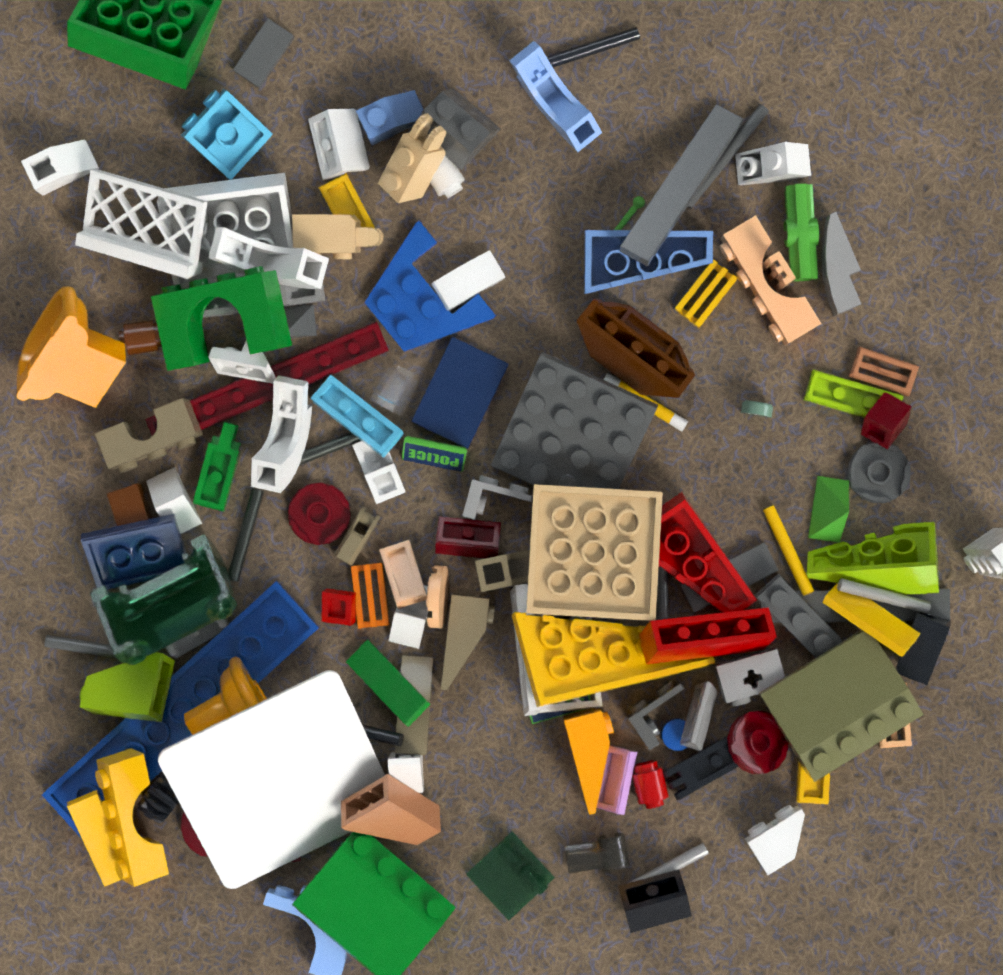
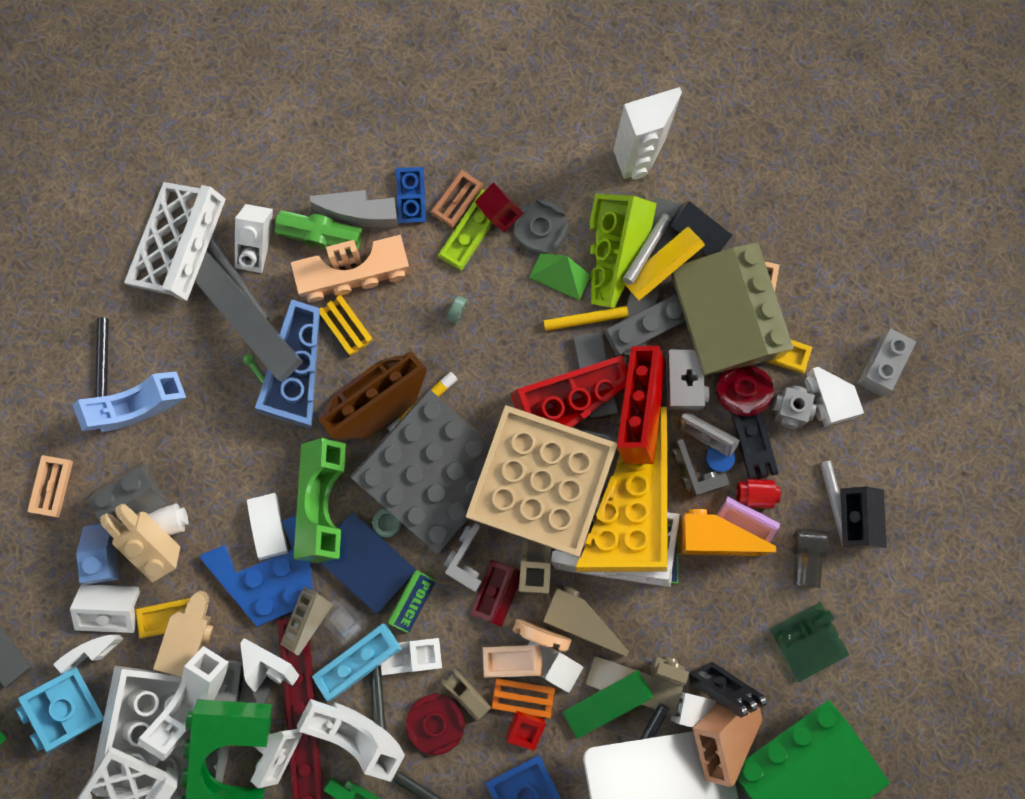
camera: 75 degrees left, 10 degrees down
(295, 147) = (94, 649): none -> white slope
(328, 319) = (261, 663): none -> white slope
(384, 351) = (305, 620): none -> dark tan slope
(436, 799) = (727, 689): none -> black hinge
(439, 736) = (669, 670): none -> dark tan slope
(445, 29) = (61, 488): none -> light nougat tile
(505, 402) = (386, 524): none -> sand green tile
(541, 316) = (315, 534): none -> bright green arch
(743, 794) = (787, 413): none -> light grey brick
(746, 101) = (191, 243): none -> white fence
(832, 888) = (886, 362): none -> light grey brick
(873, 319) = (411, 195): none -> blue slope

